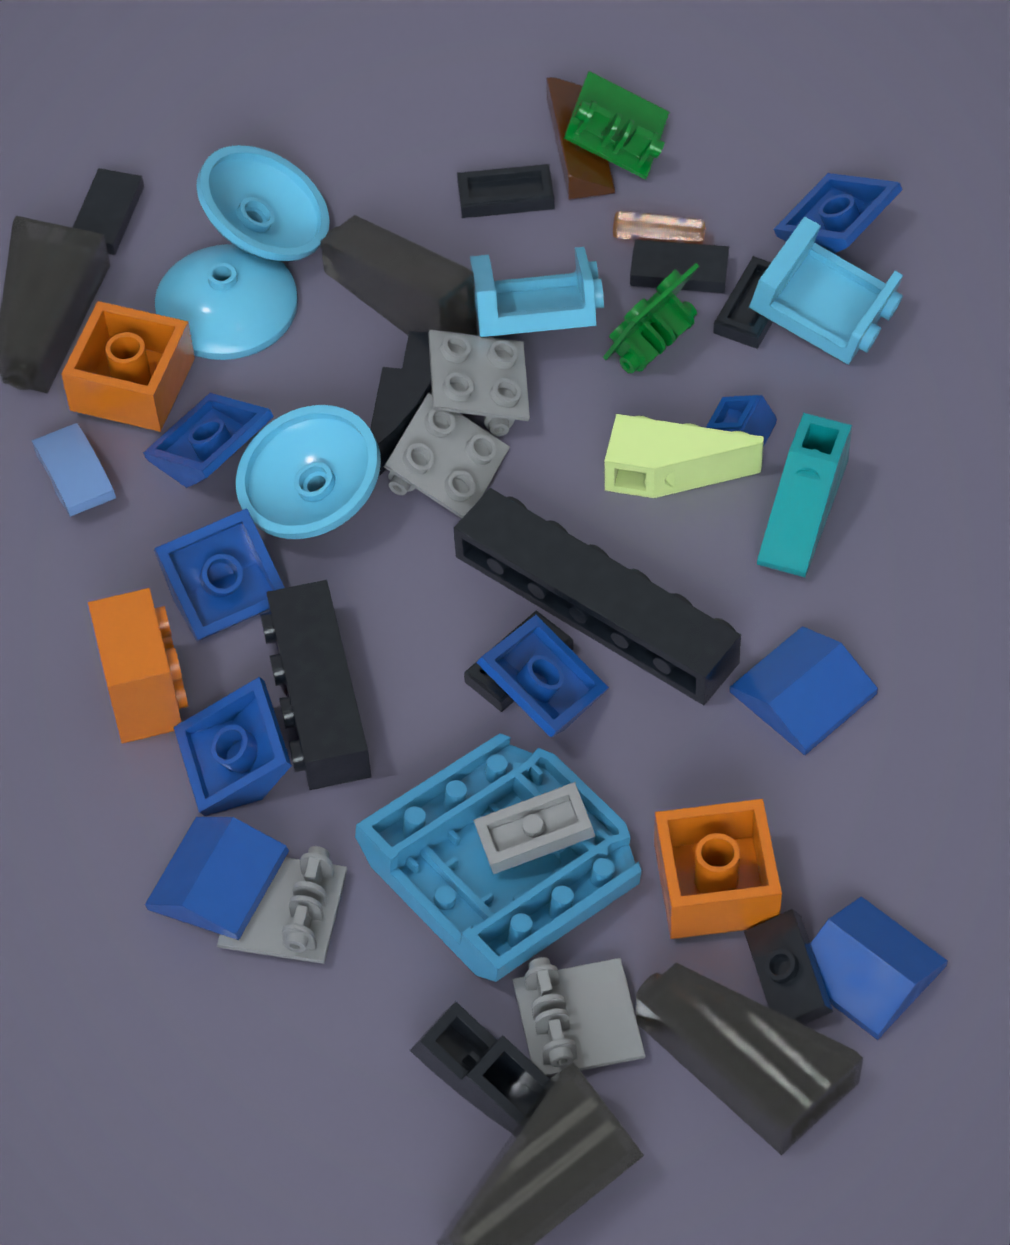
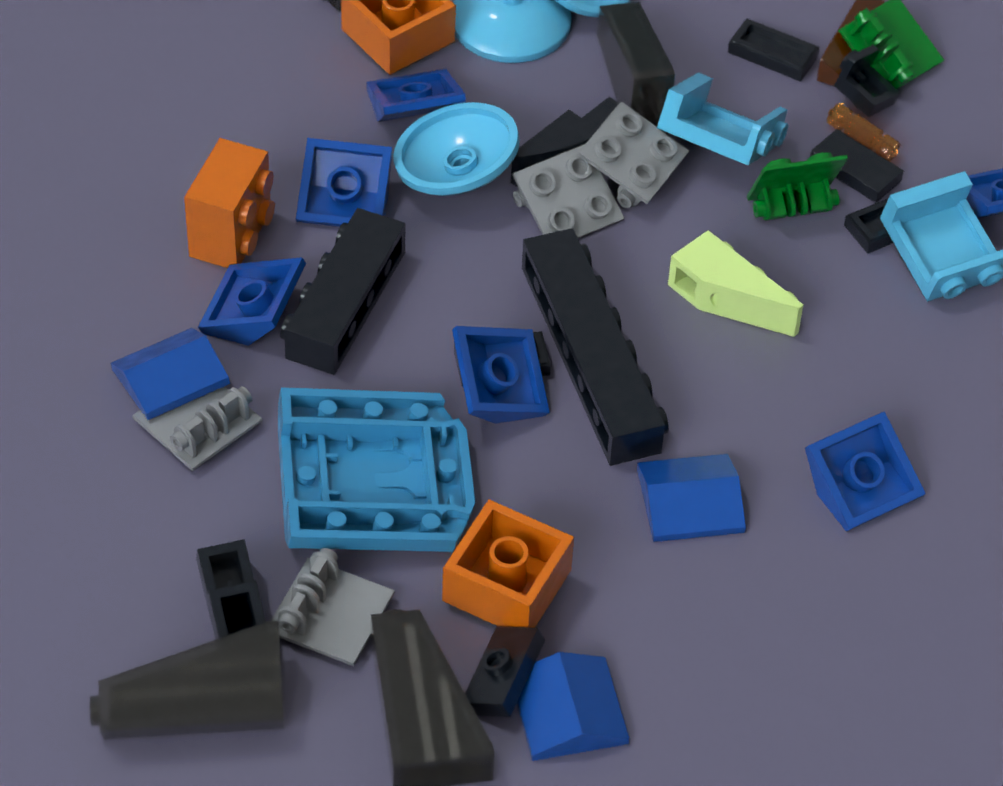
camera: 30 degrees right, 5 degrees down
(73, 469) = (308, 65): medium blue slope -> none
(534, 828) = (403, 465): light grey plate -> none
(625, 179) = (863, 83): none -> black bracket
(744, 414) = (814, 292): blue slope -> none
(805, 494) = (805, 362): teal slope -> none
(940, 570) = (863, 472): none -> blue slope

